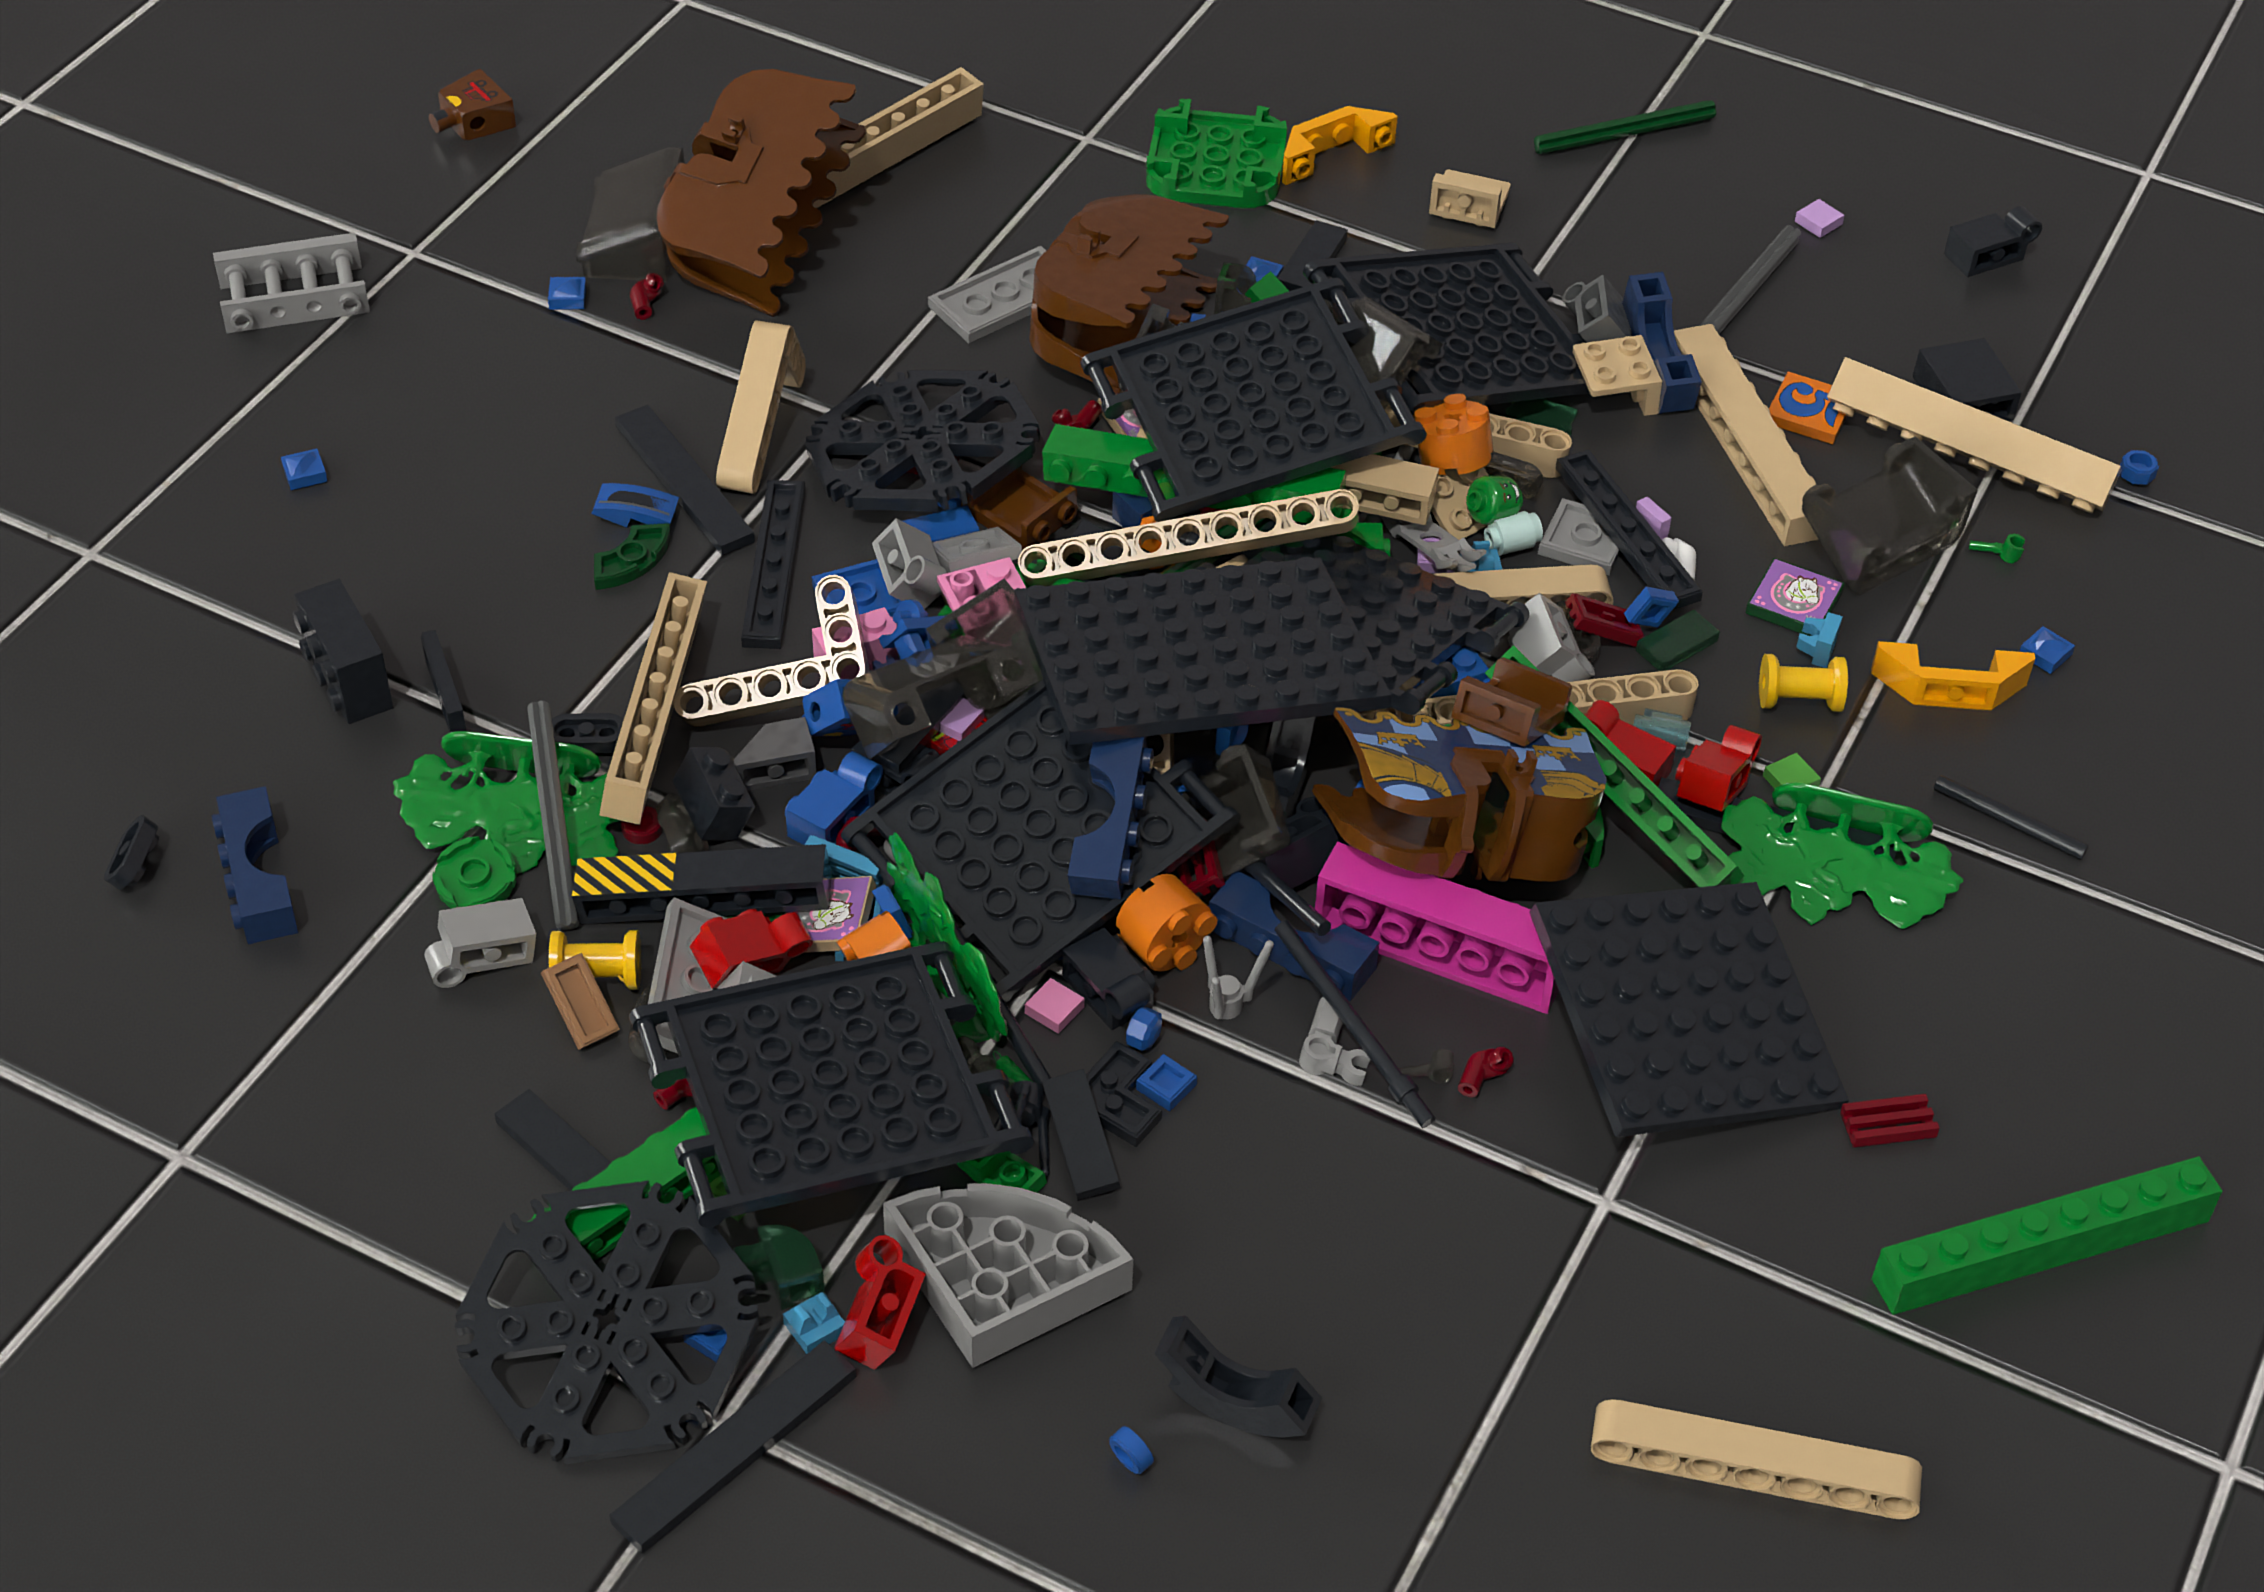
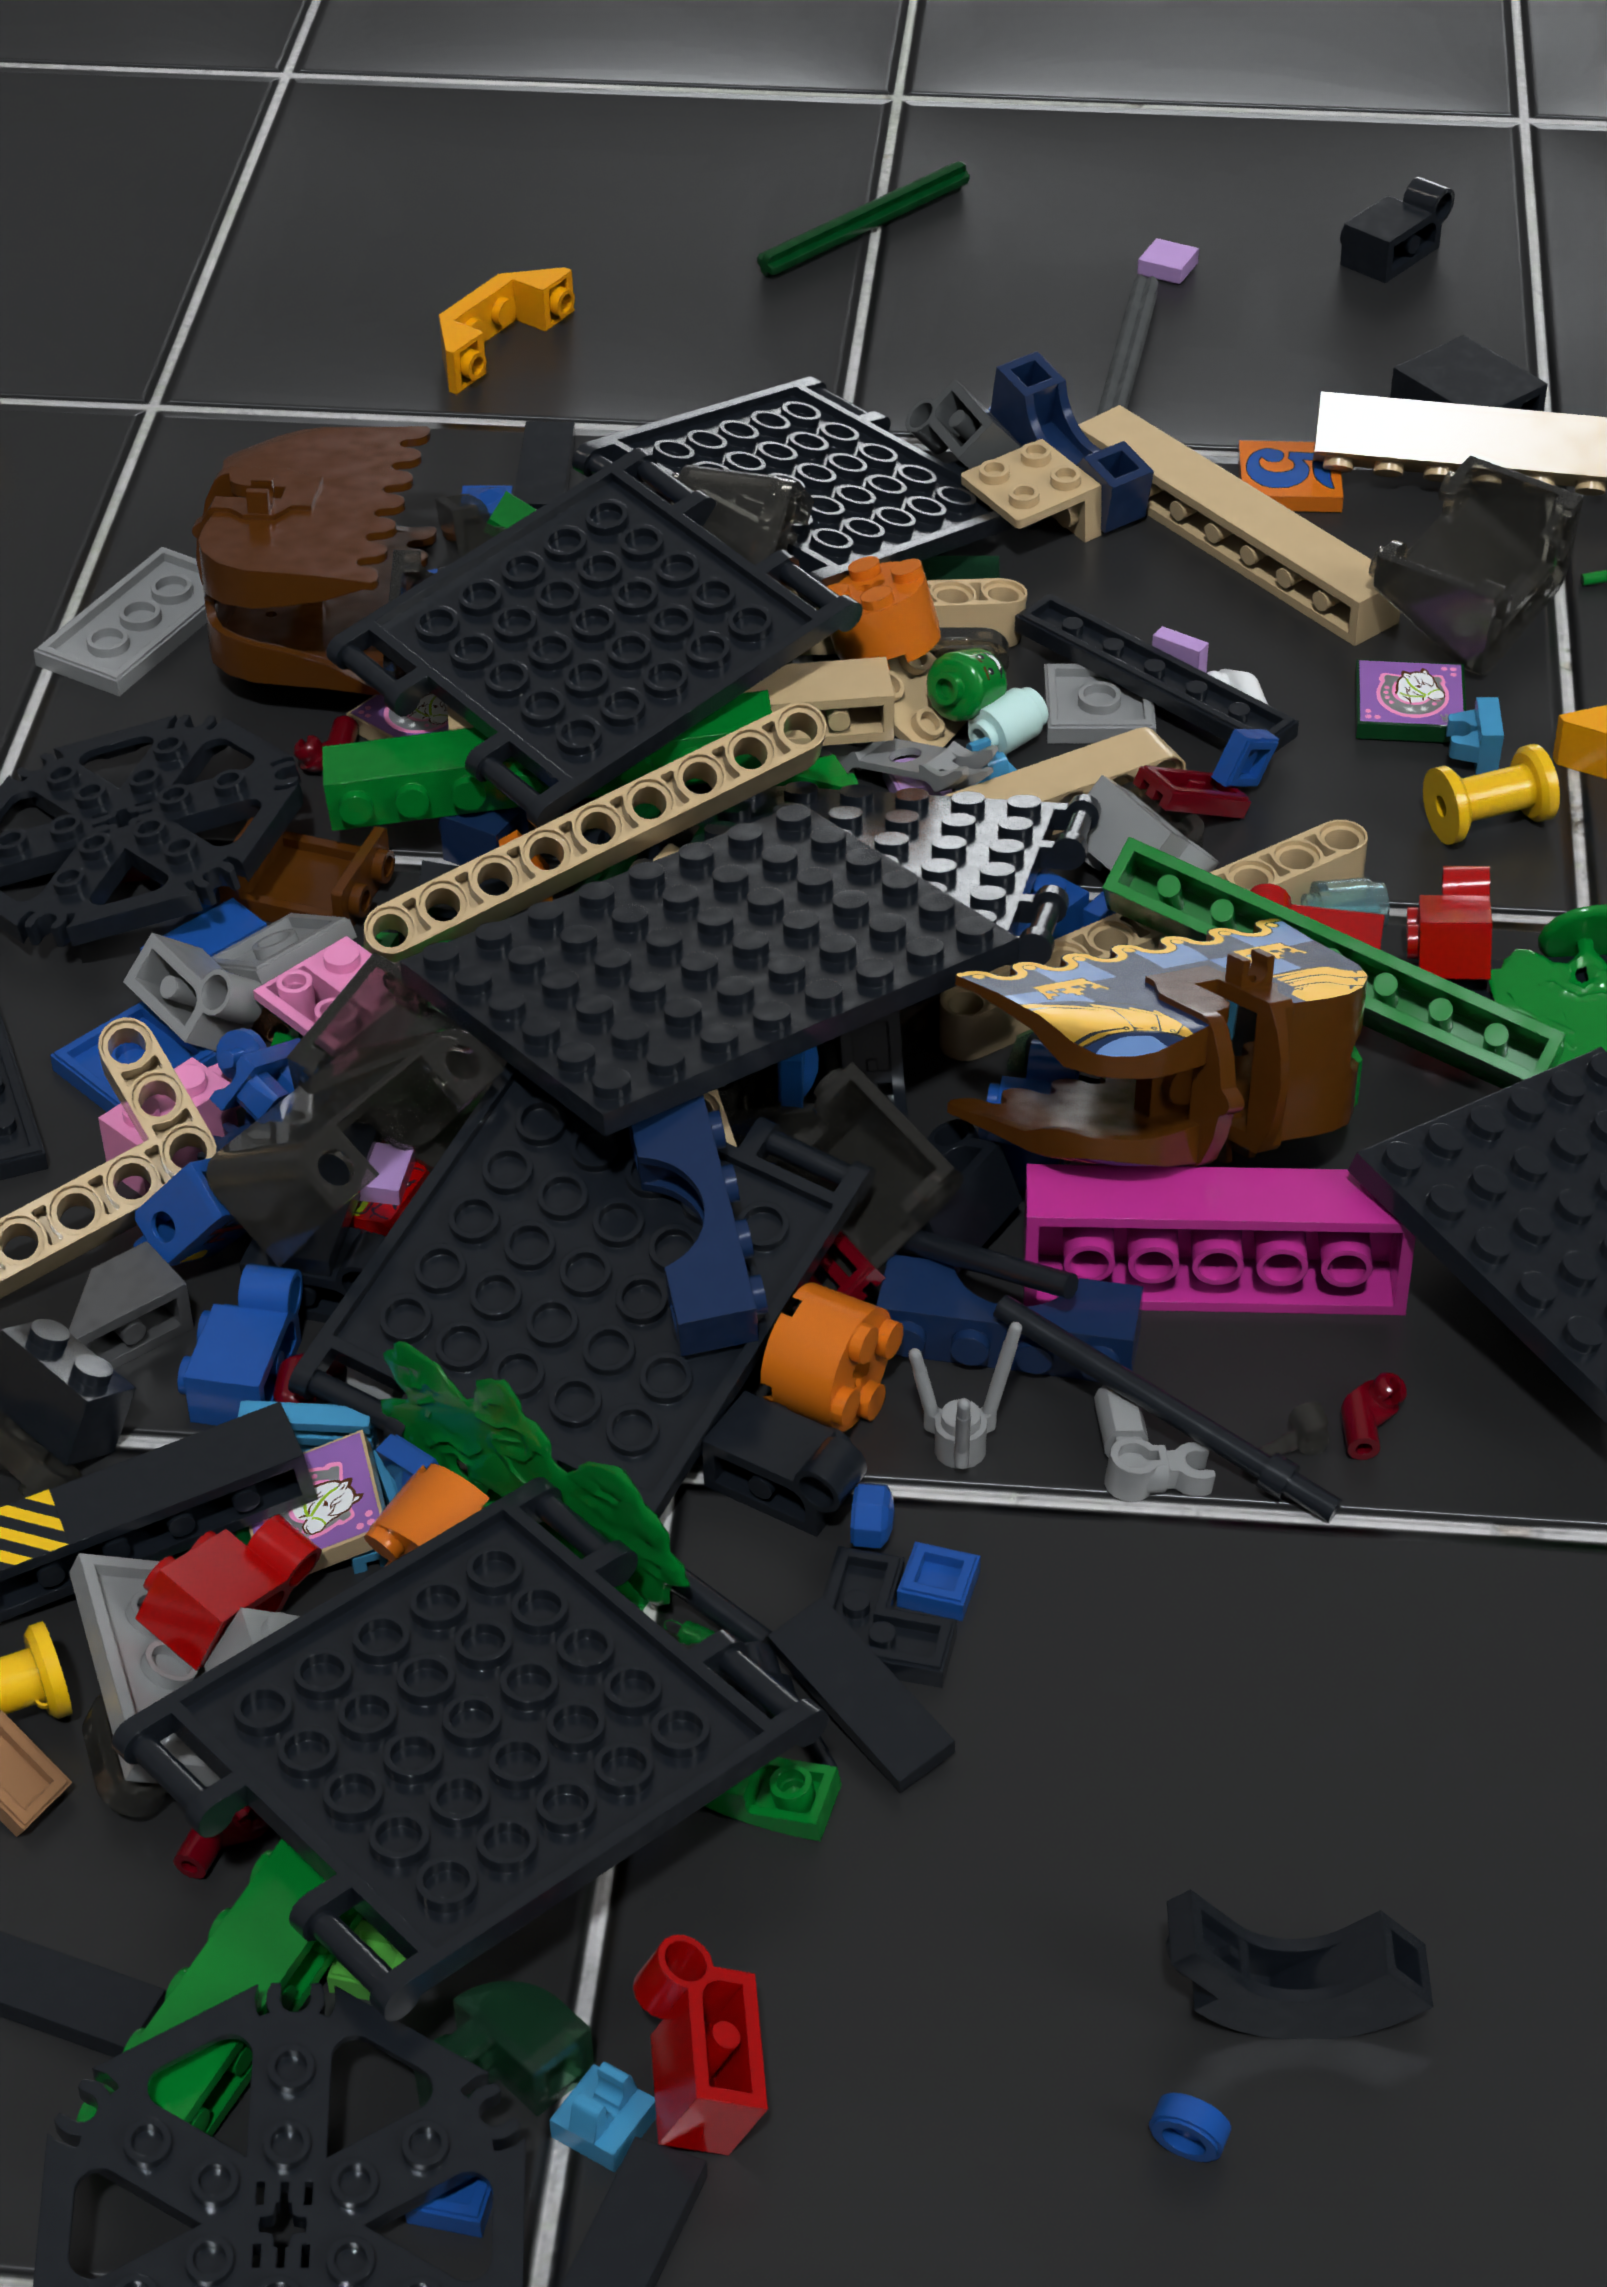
camera: 20 degrees left, 5 degrees down
(1005, 1262) = (856, 1916): light grey brick -> none
(1054, 1005) = (718, 1528): bright pink tile -> none
(1216, 156) = (347, 375): green tile -> none
(1468, 198) = (715, 346): tan bracket -> none
(1514, 704) = (1176, 903): reddish brown panel -> none
(1677, 640) = (1293, 794): clear green tile -> none
(1790, 770) = (1533, 911): bright green tile -> none

